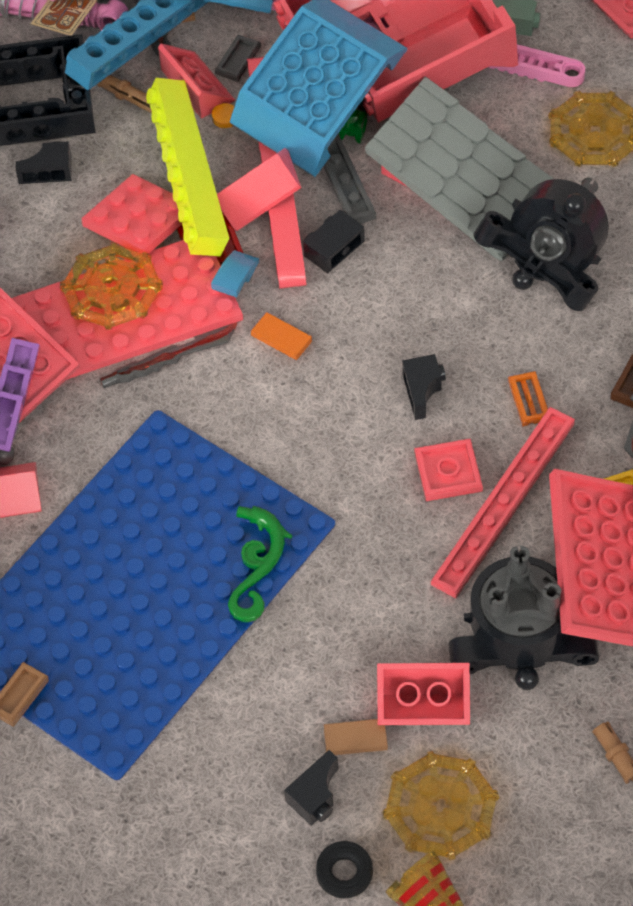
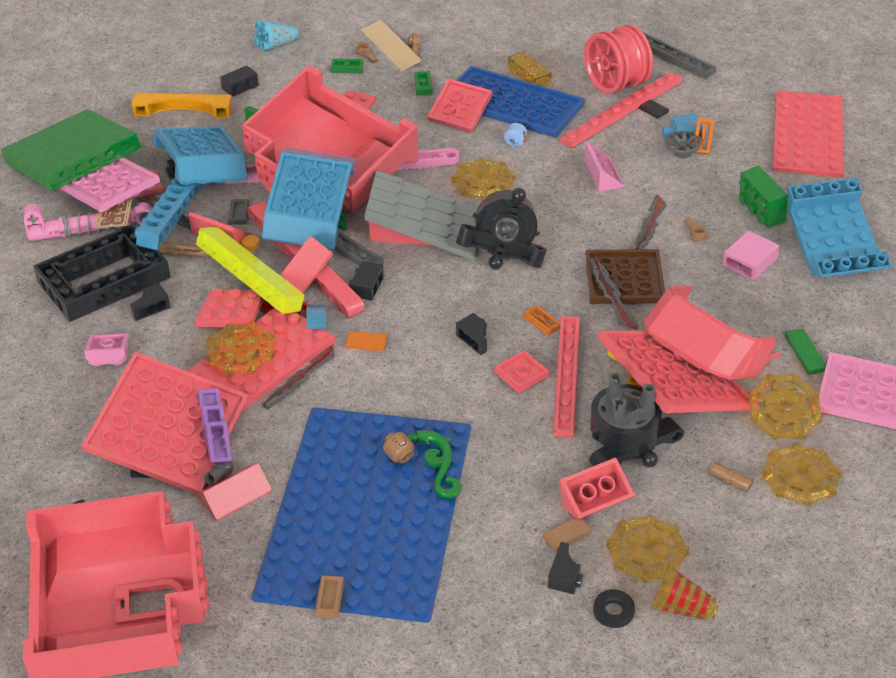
camera: 30 degrees left, 15 degrees down
(216, 521) = (398, 447): none -> medium nougat head

